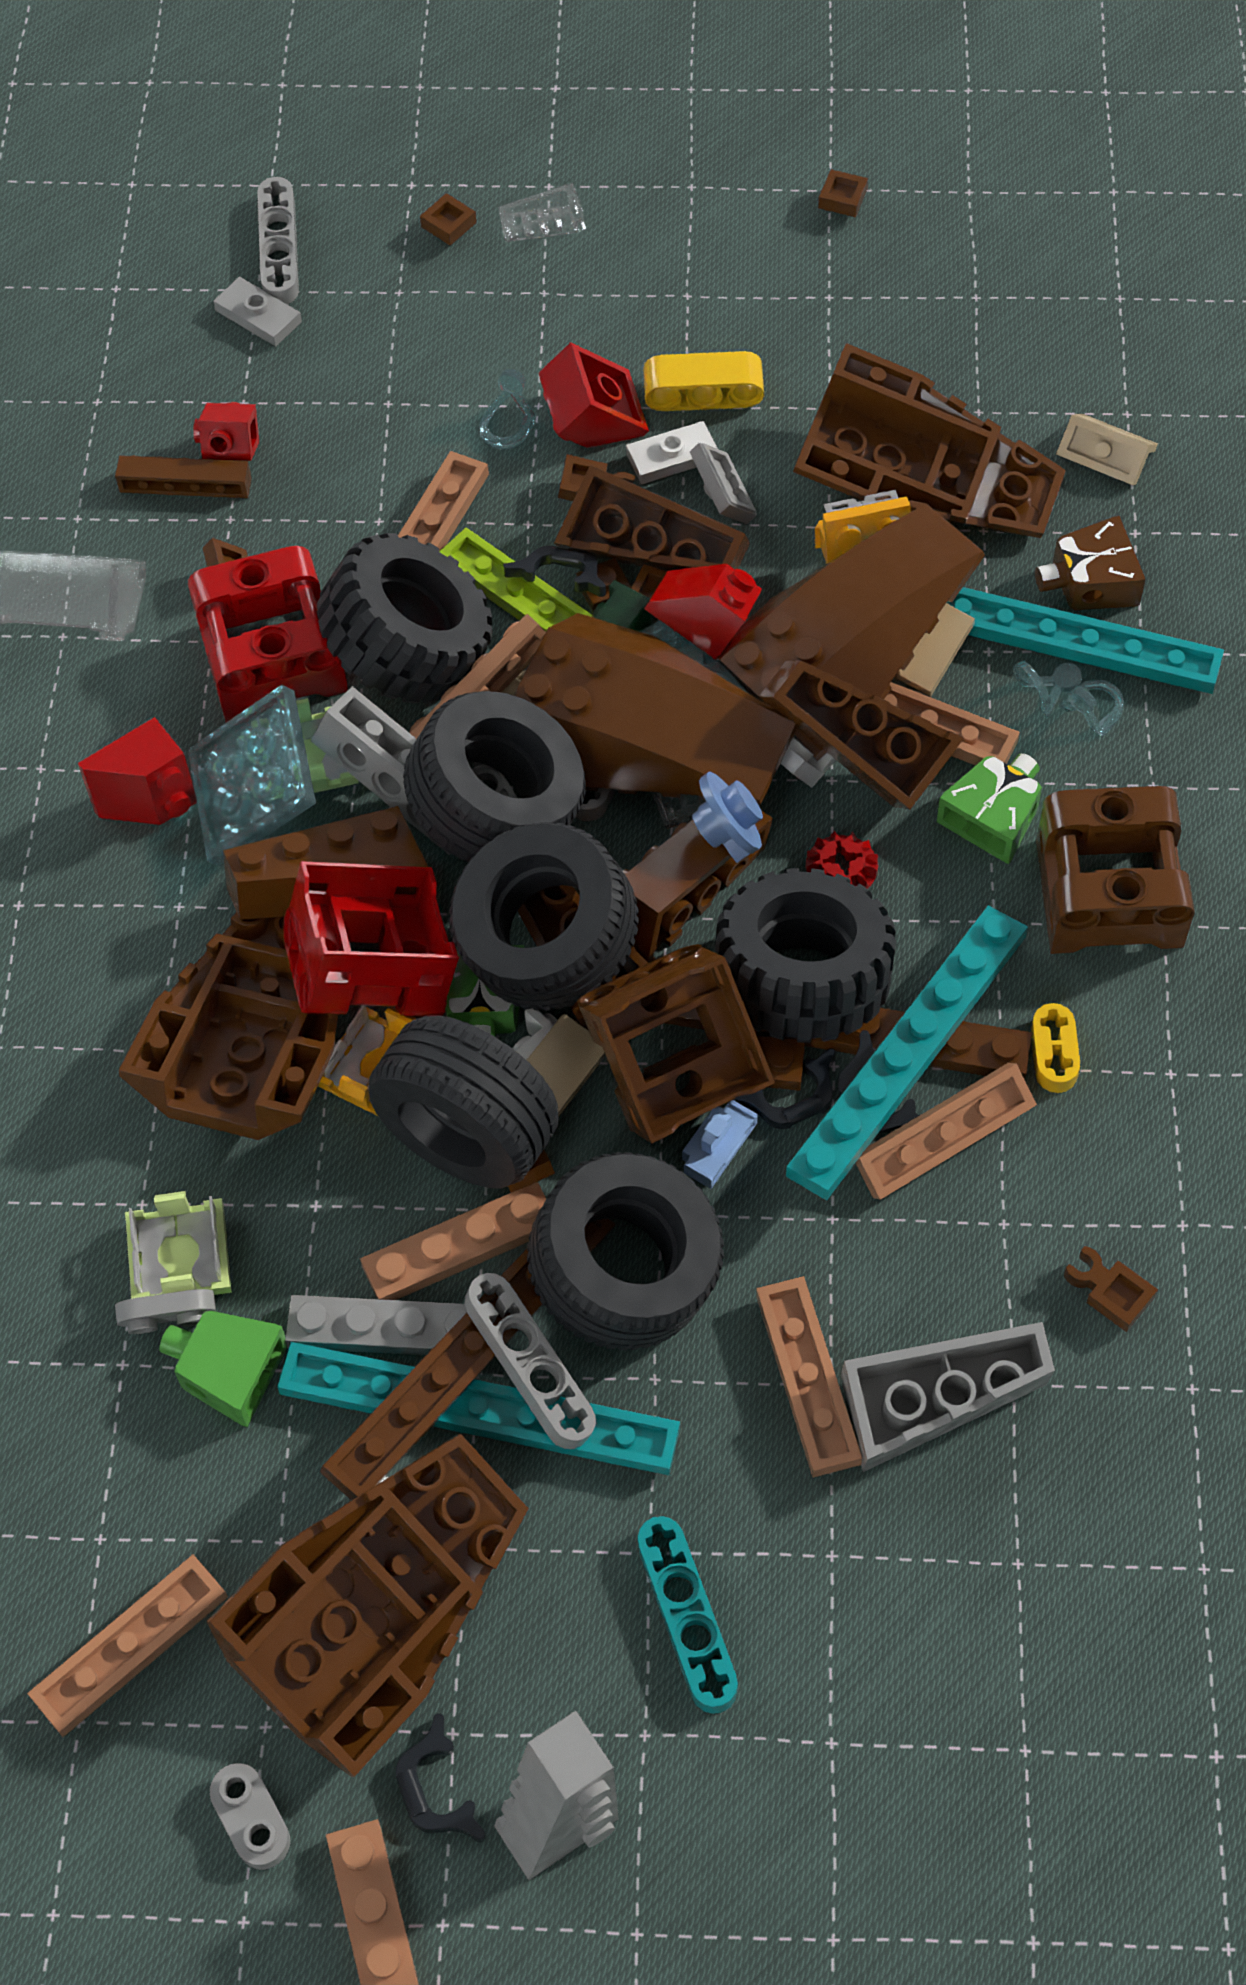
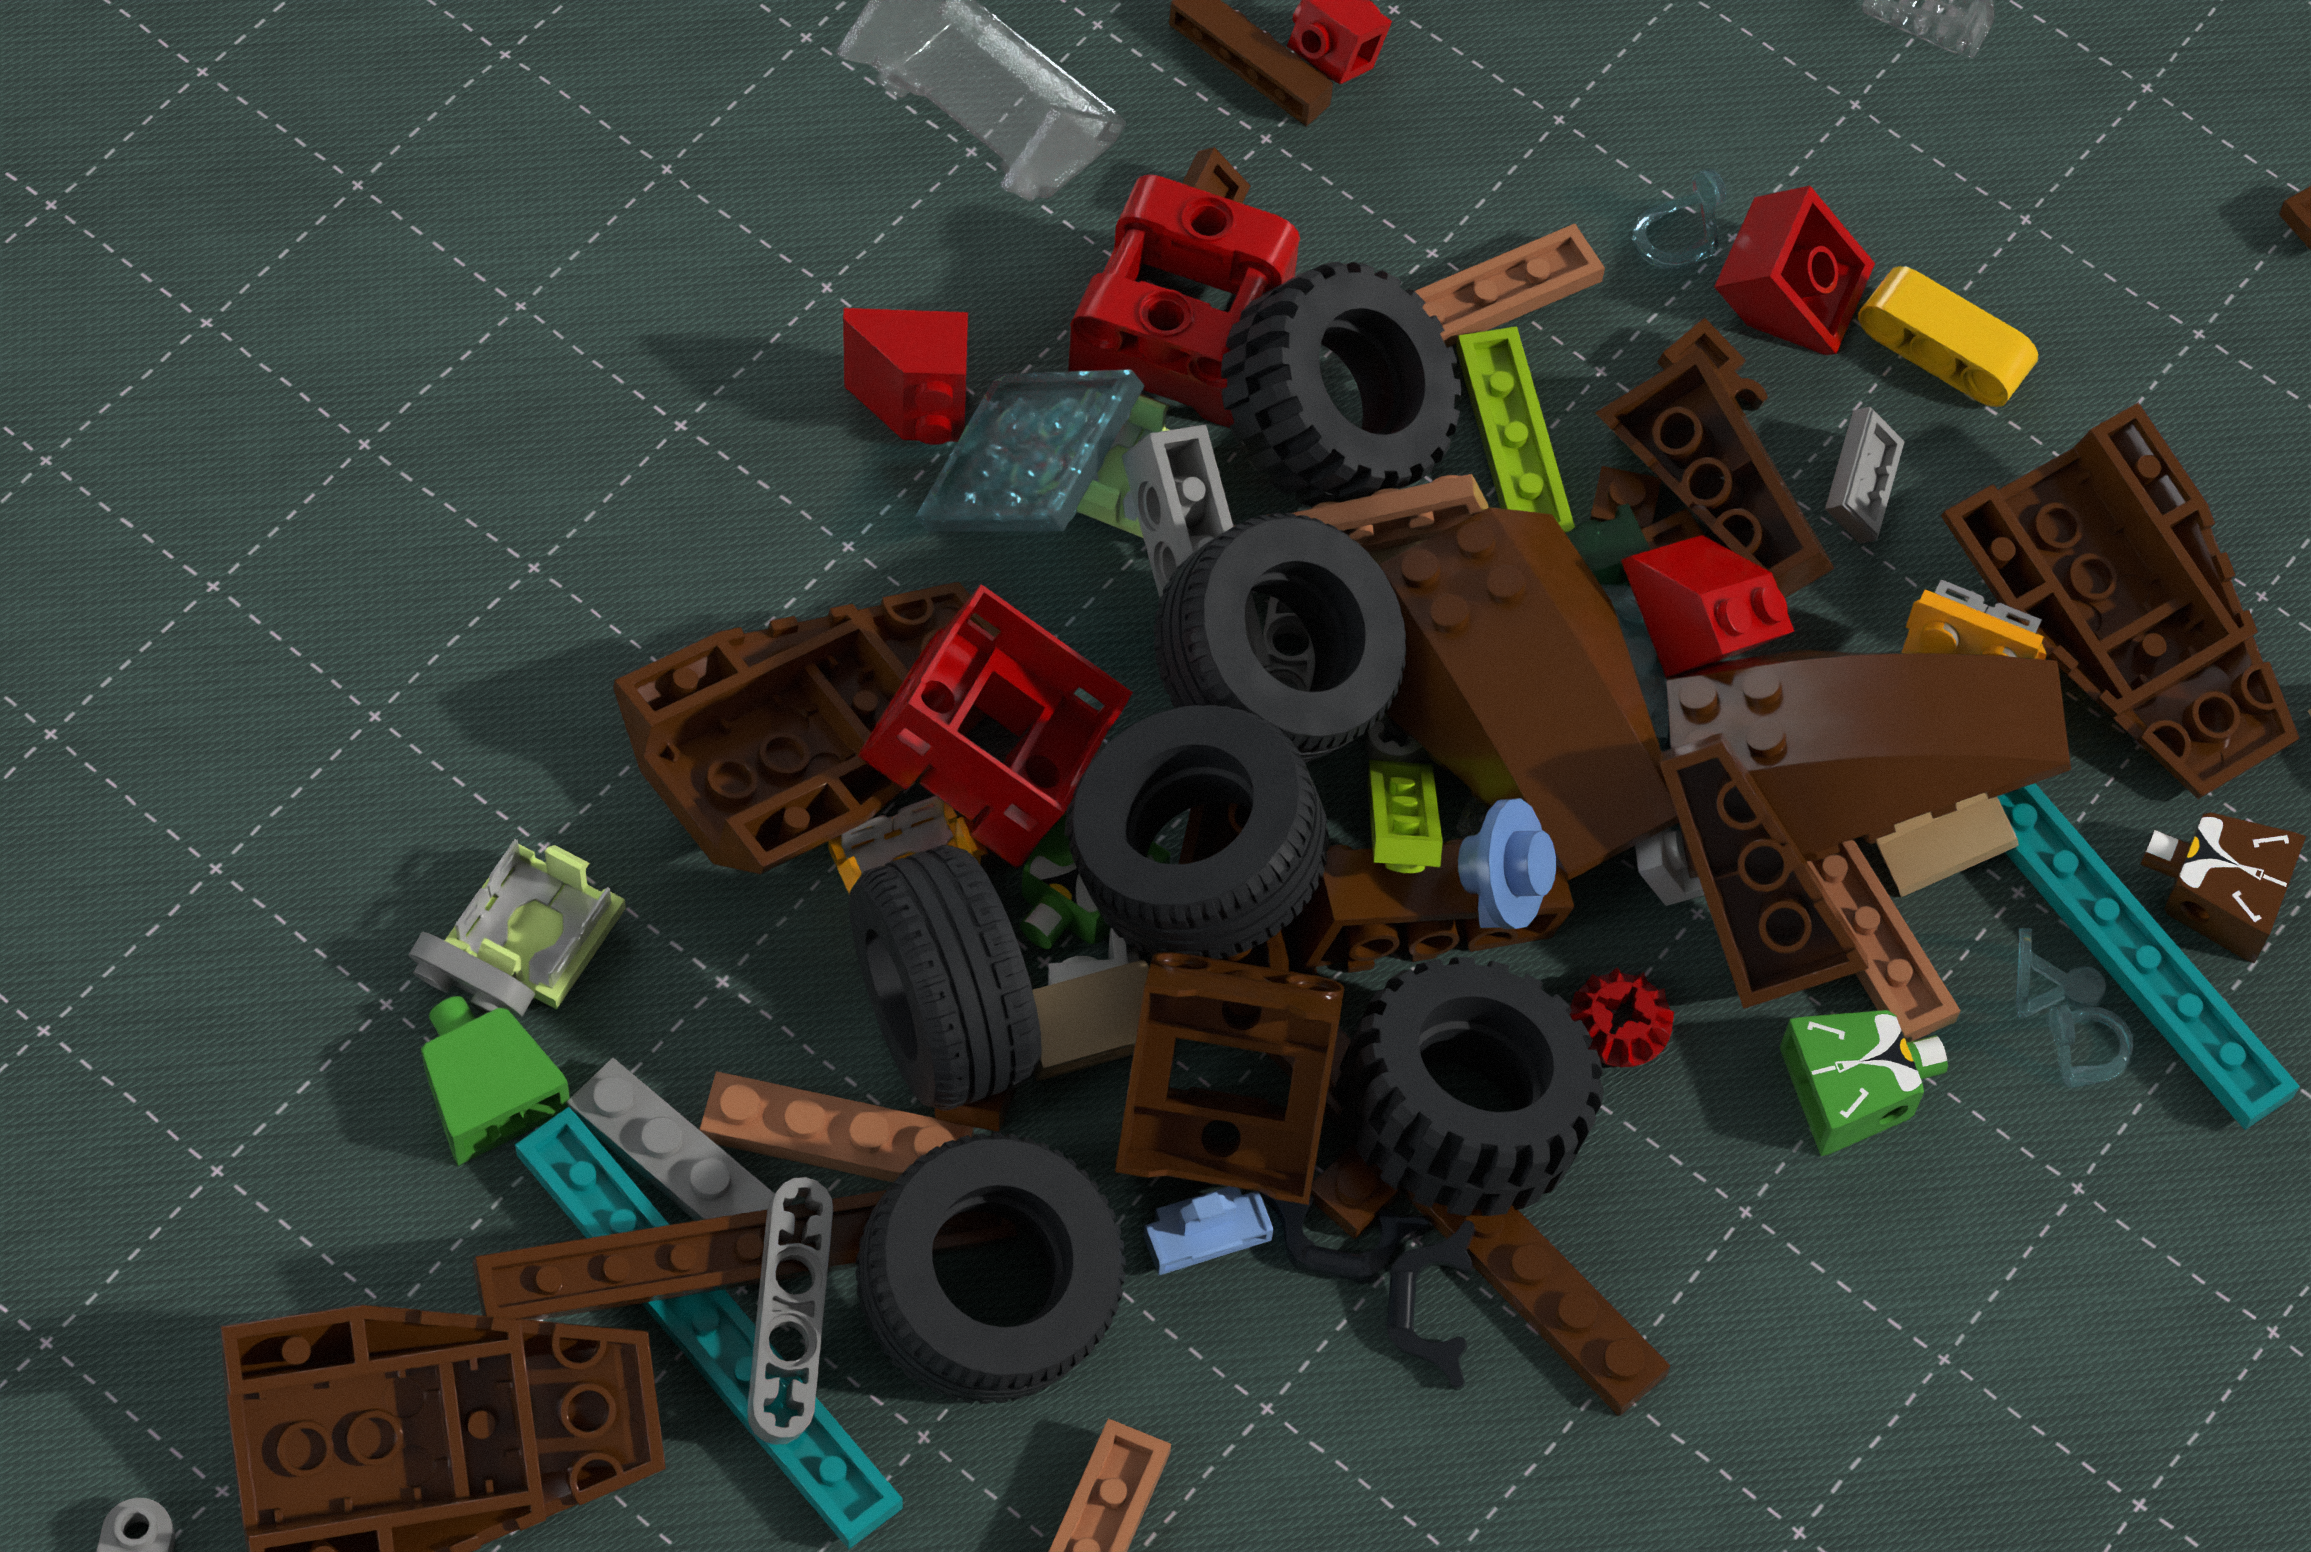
camera: 30 degrees right, 0 degrees up
(127, 1645) = (147, 1299): nougat plate -> none
(265, 872) = (1083, 610): reddish brown wedge -> none
(554, 555) = (1586, 424): black helmet -> none
(643, 830) = (1404, 815): none -> lime plate
(667, 452) = (1831, 392): white plate -> none
(906, 1053) = (1500, 1280): teal plate -> none
(945, 1130) = (1471, 1401): nougat plate -> none
(1065, 1046) = (1696, 1411): yellow beam -> none
(1089, 906) = (1963, 1193): reddish brown piece -> none

